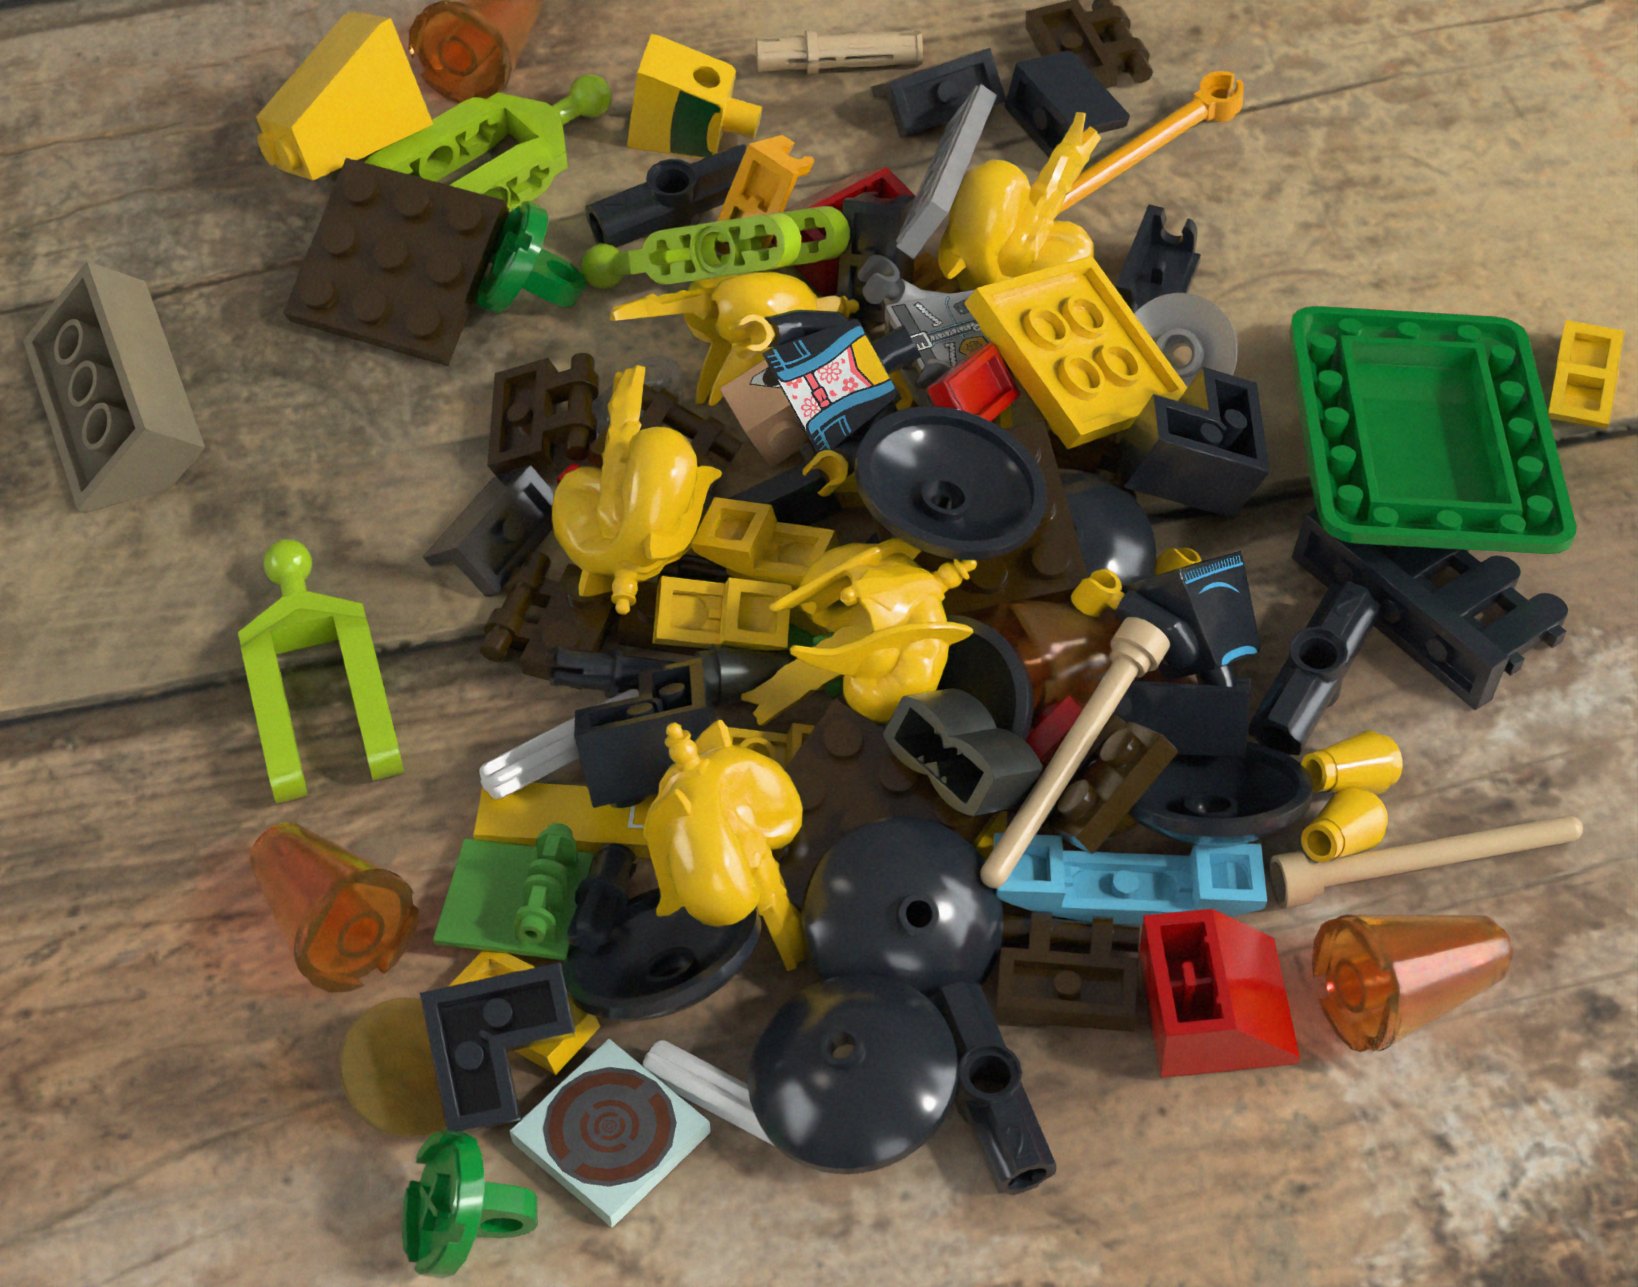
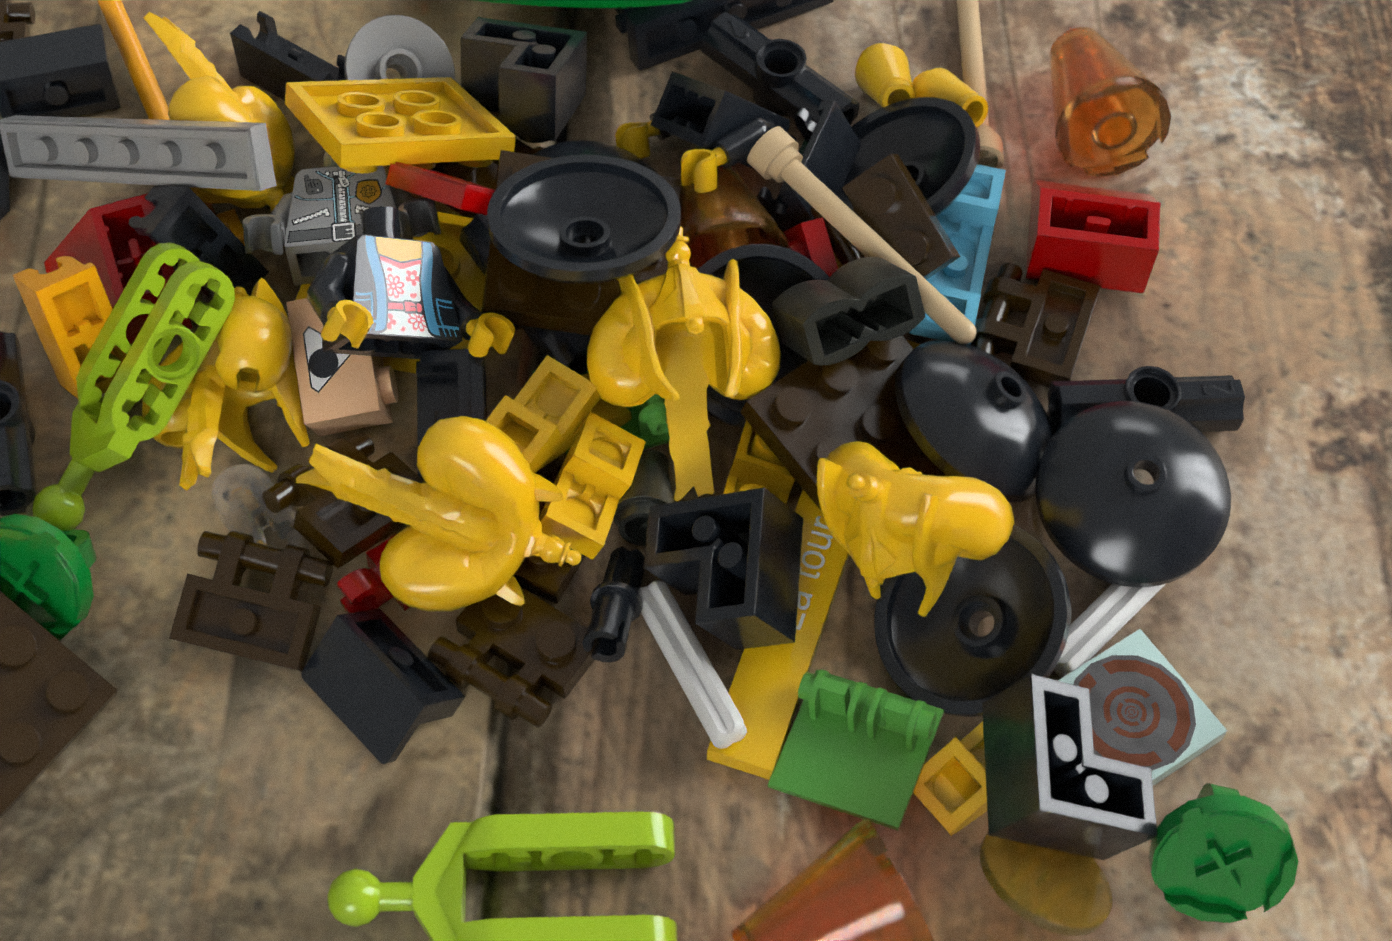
camera: 80 degrees left, 5 degrees up
(601, 897) = (889, 663): black axle -> none

